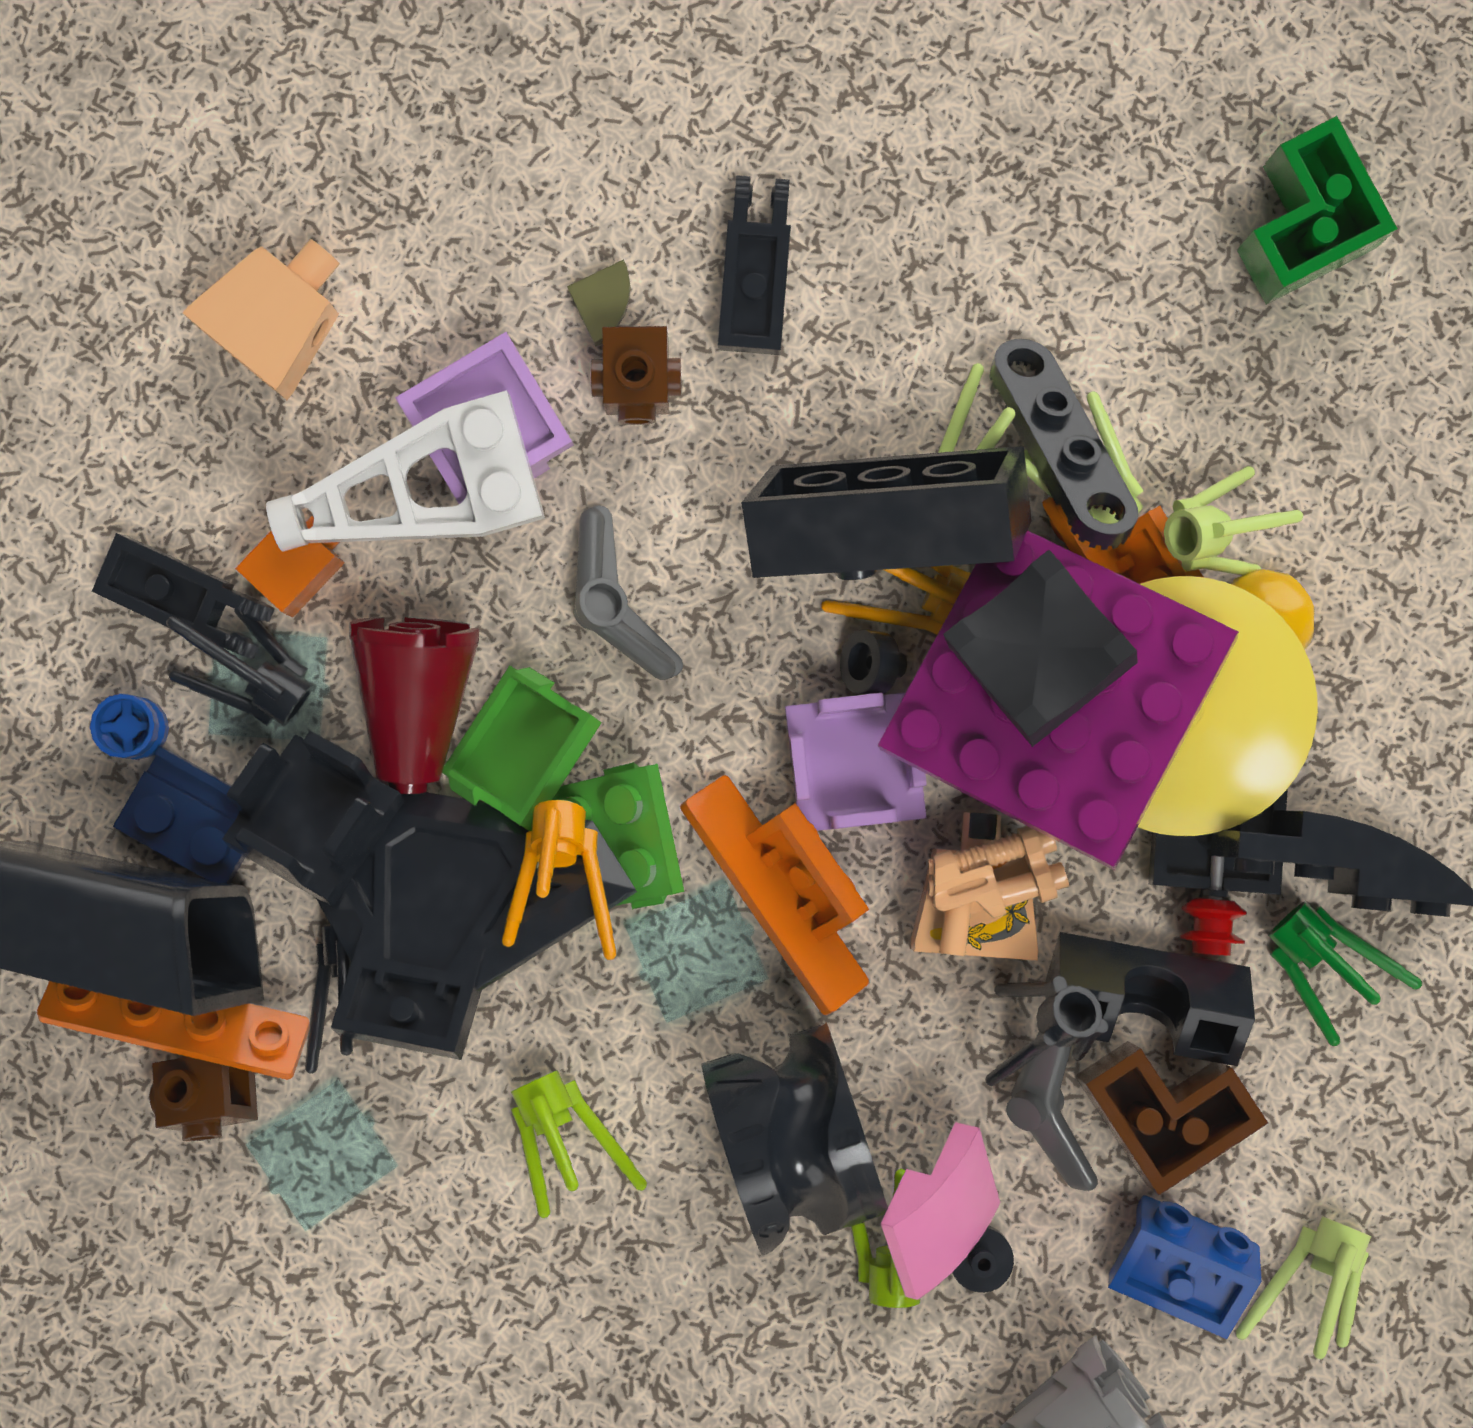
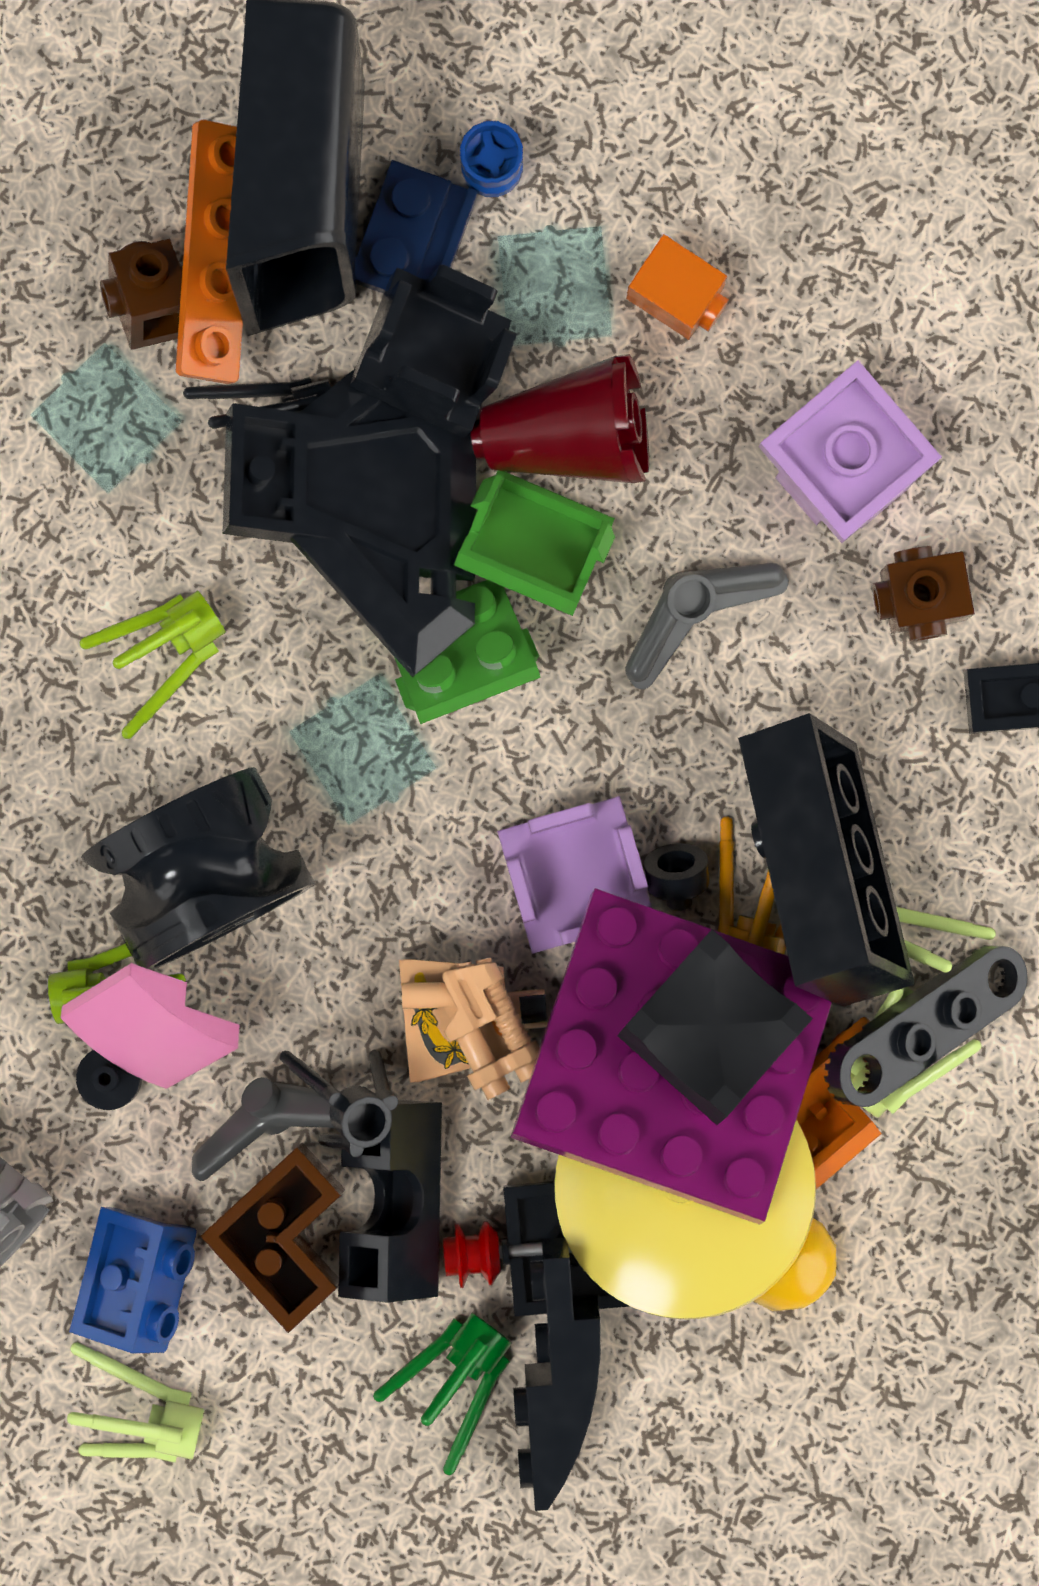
camera: 80 degrees right, 0 degrees up
(168, 587) = (628, 181): black hinge -> none
(270, 313) = (921, 224): light nougat torso -> none
(275, 690) = (551, 294): black plant -> none
(492, 465) = (802, 468): white plate -> none
(556, 841) = (446, 587): light orange plant -> none
(602, 299) = (994, 548): olive tile -> none
(788, 887) = (442, 826): orange bracket -> none
(1203, 532) = (859, 1175): yellowish green plant -> none

